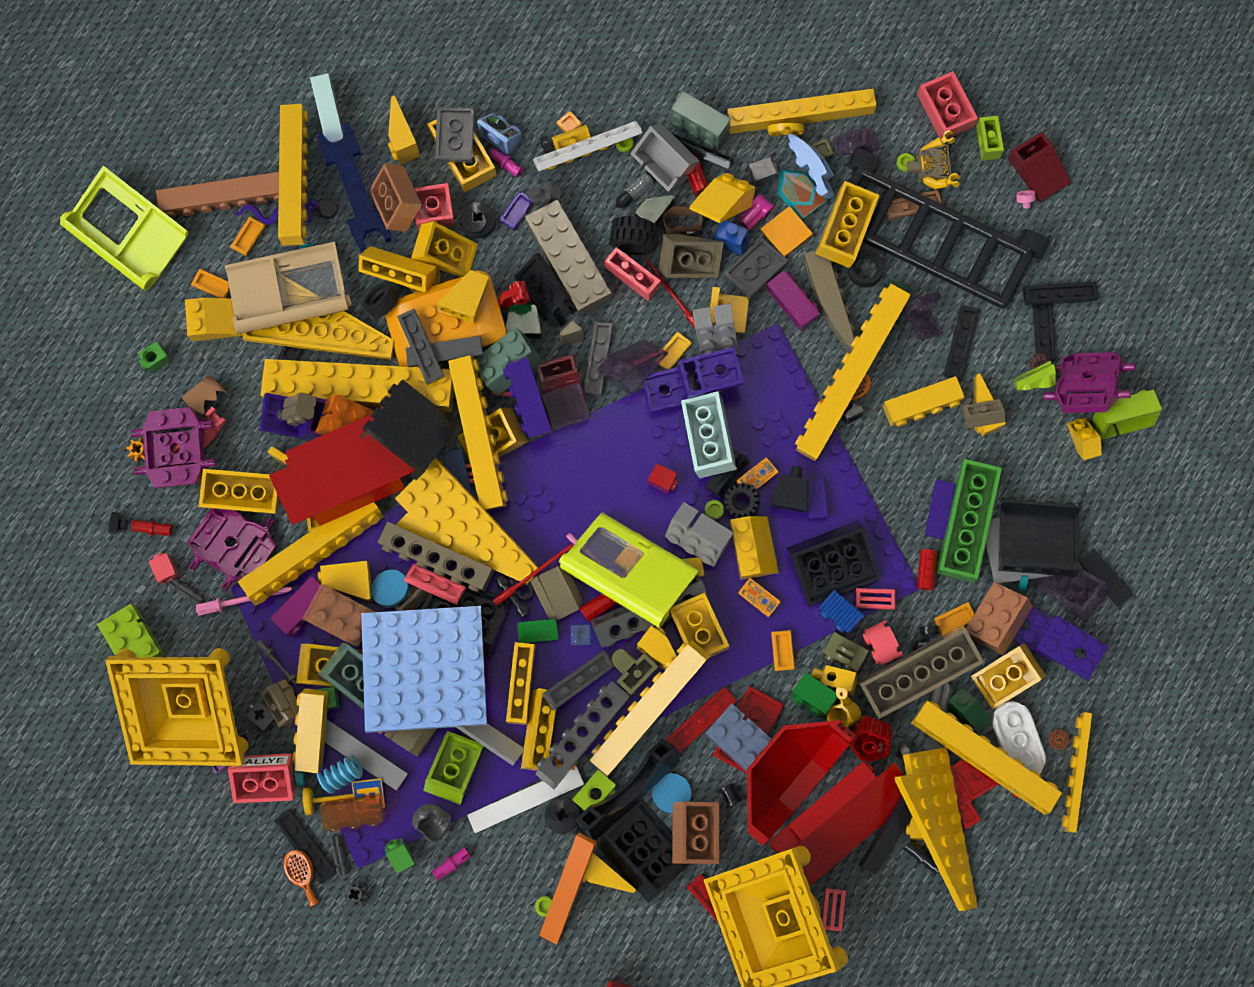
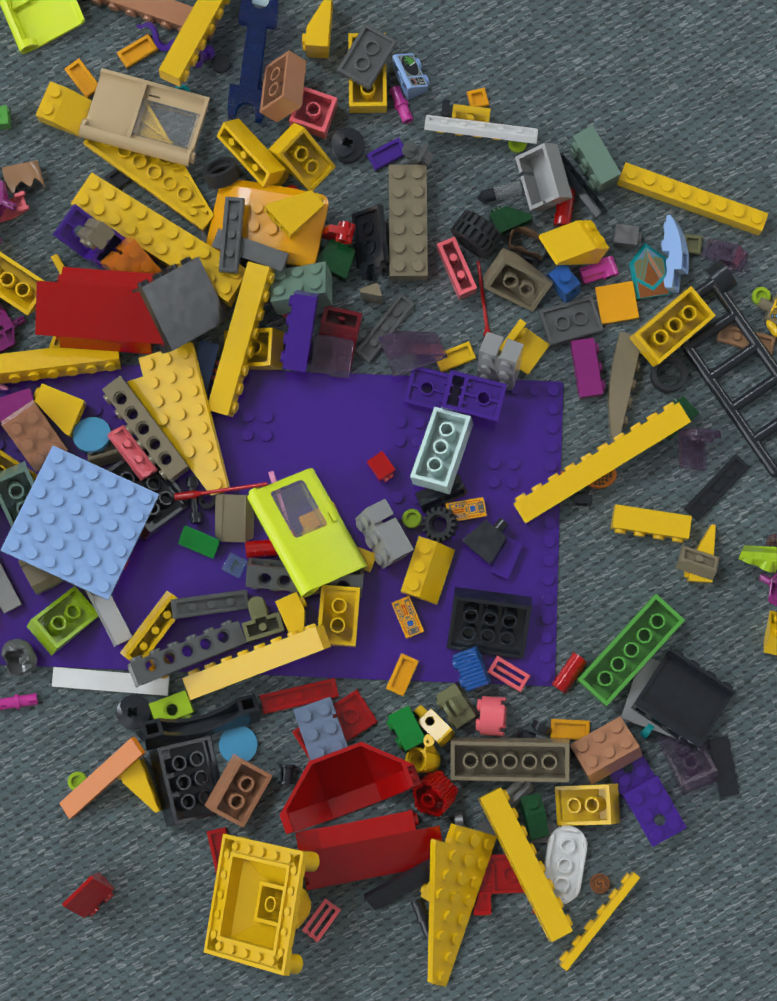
camera: 25 degrees right, 5 degrees up
(521, 683) = (159, 580): yellow brick -> none
(785, 129) = (668, 209): yellow tile -> none
(939, 509) = (611, 626): dark purple tile -> none

